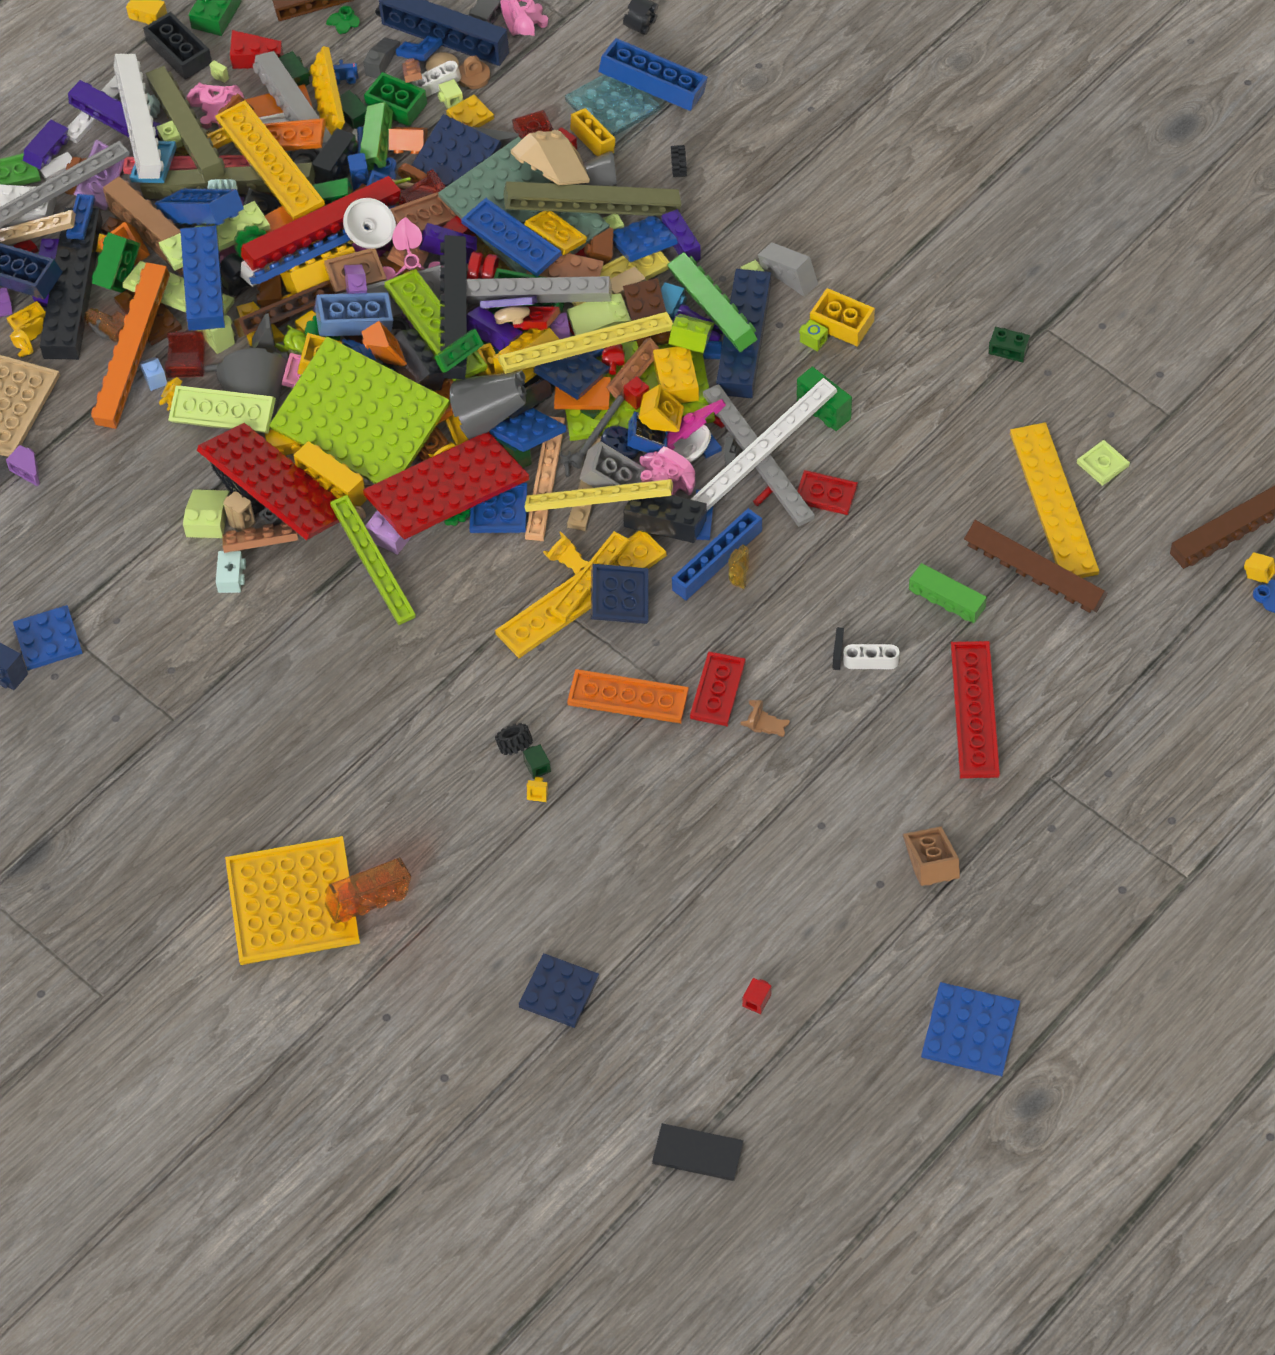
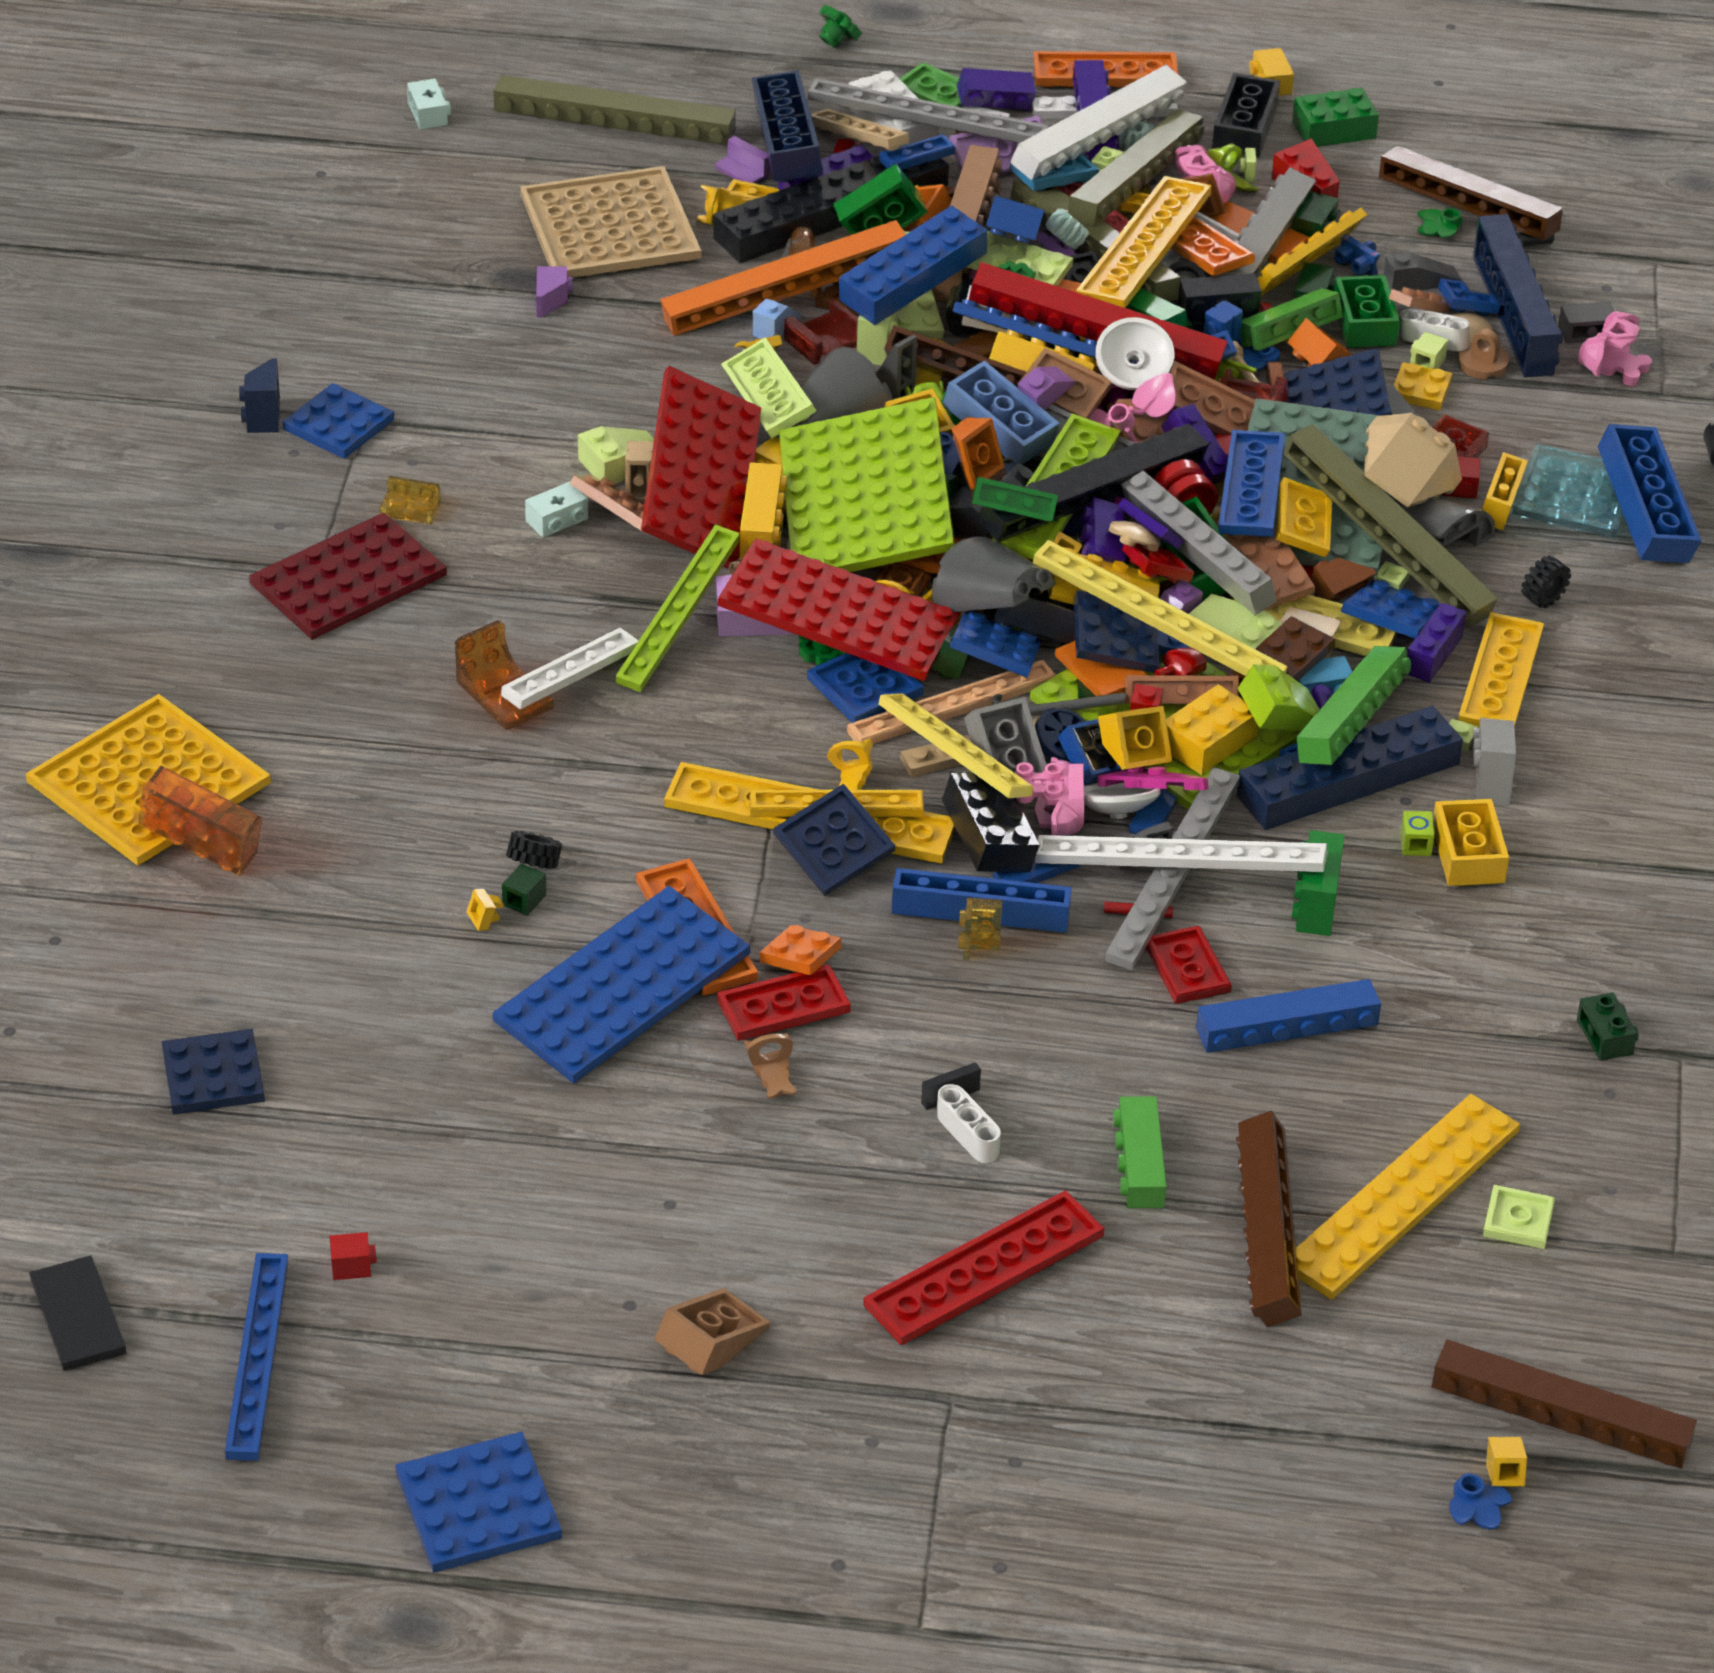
camera: 50 degrees right, 15 degrees down
(53, 95) = (1124, 68): none -> orange plate
(156, 640) = (411, 500): none -> clear yellow bracket
(193, 707) = (347, 575): none -> dark red plate
(207, 78) = (1231, 155): none -> lime hair
(360, 681) = (485, 667): none -> clear orange bracket
(377, 640) = (569, 668): none -> white plate
(647, 756) = (621, 984): none -> blue plate
(686, 658) = (800, 949): none -> orange plate
(723, 224) = (1501, 669): none -> yellow plate
(796, 1079) = (256, 1357): none -> blue plate
(900, 472) = (1288, 1015): none -> blue brick

